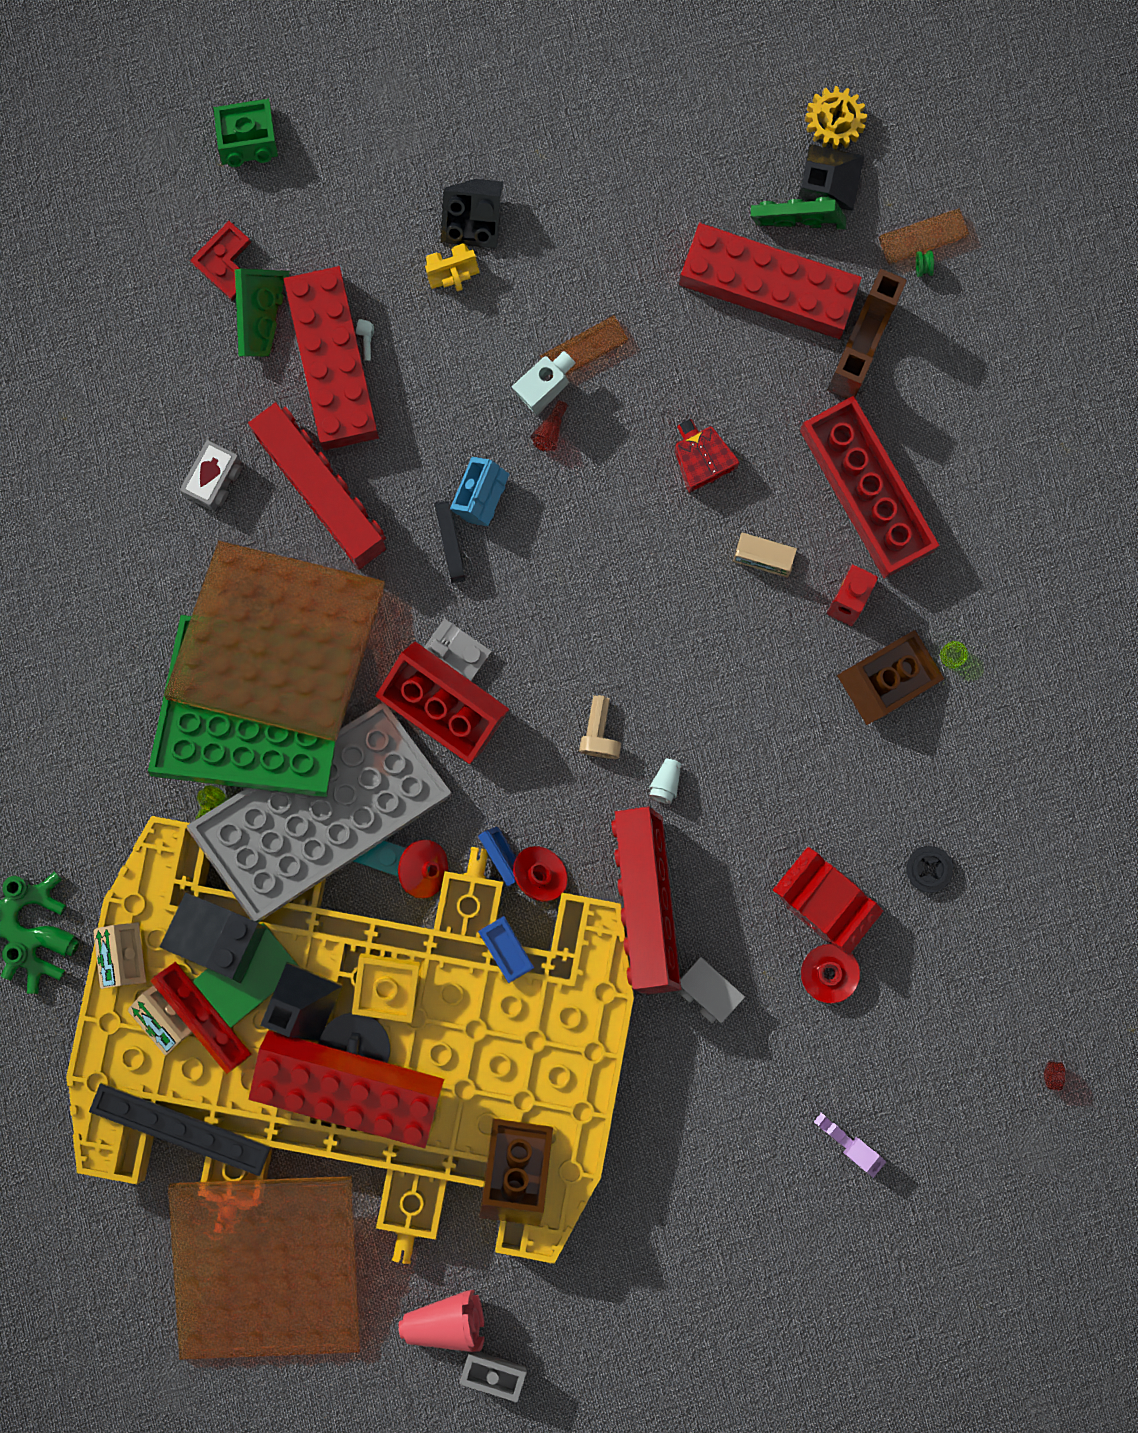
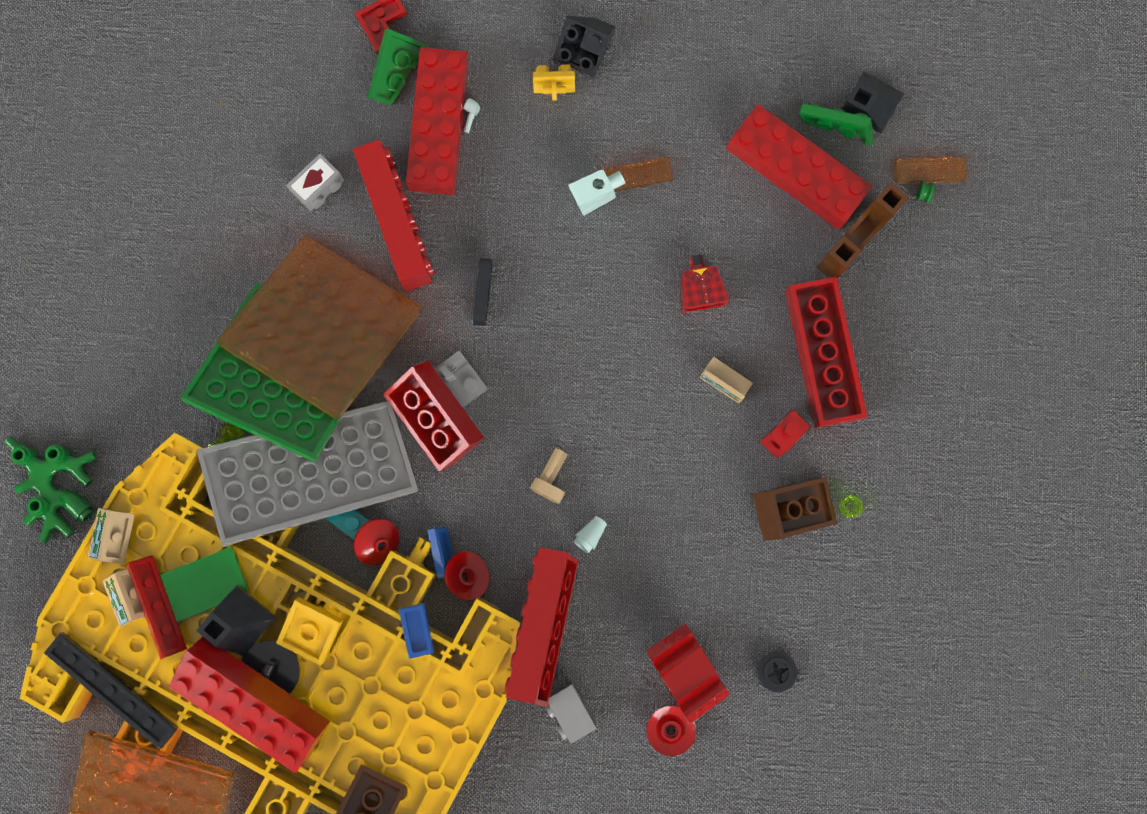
camera: 20 degrees right, 0 degrees up
(213, 937) = (186, 547): black slope -> none
(479, 491) = (518, 260): dark azure brick -> none
(547, 434) = (586, 232): clear red cone -> none
(847, 122) = (886, 46): yellow gear -> none

